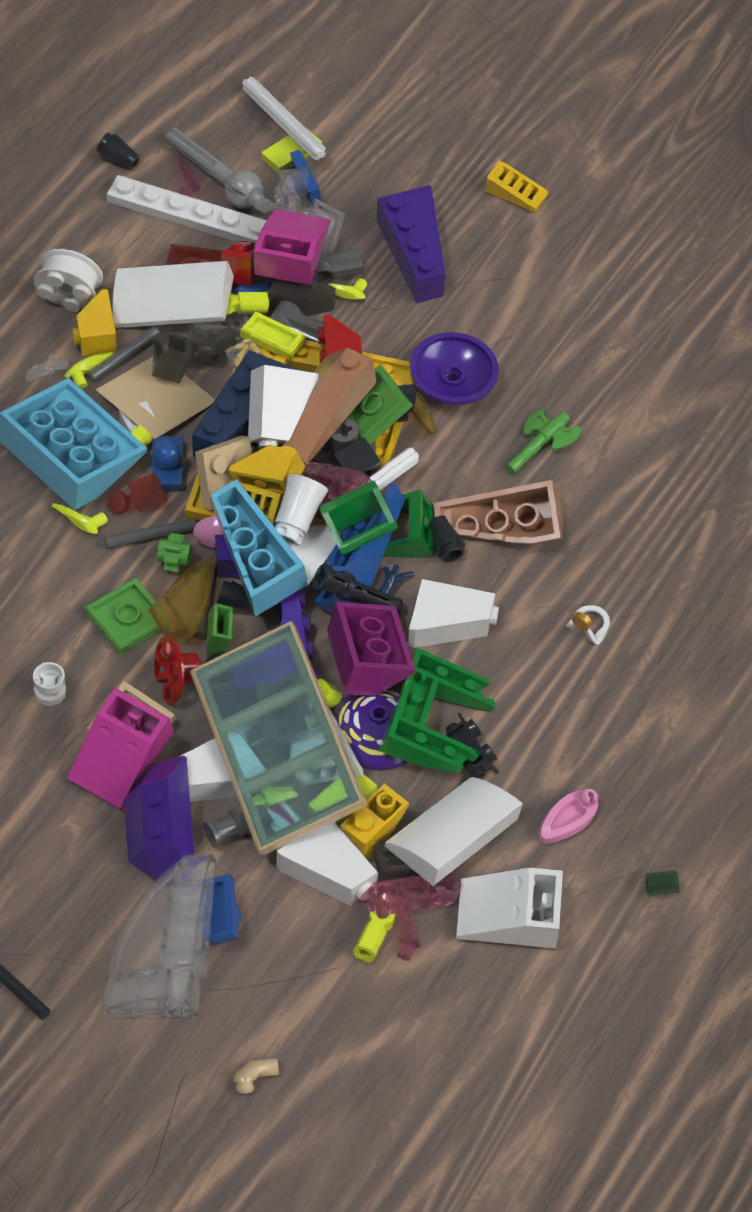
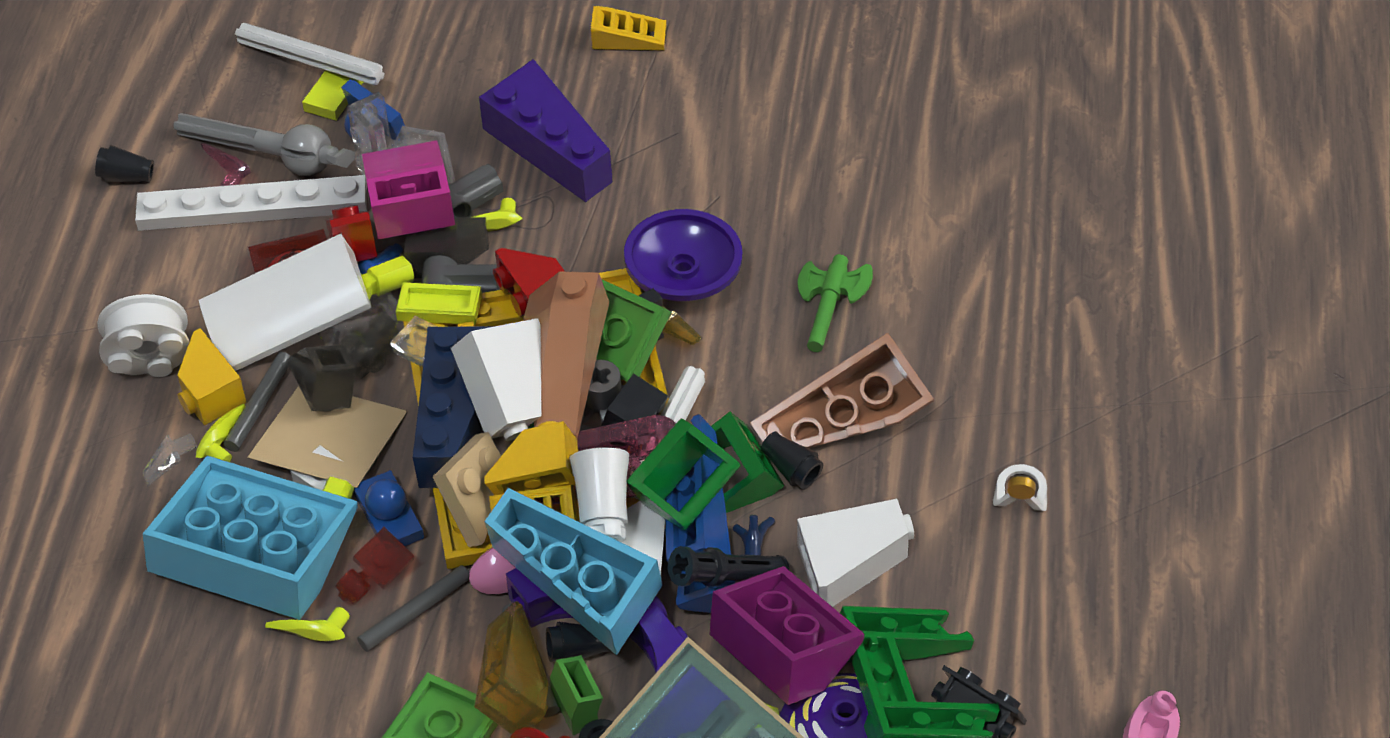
camera: 20 degrees left, 5 degrees down
(174, 552) = (462, 618): bright green gear -> none

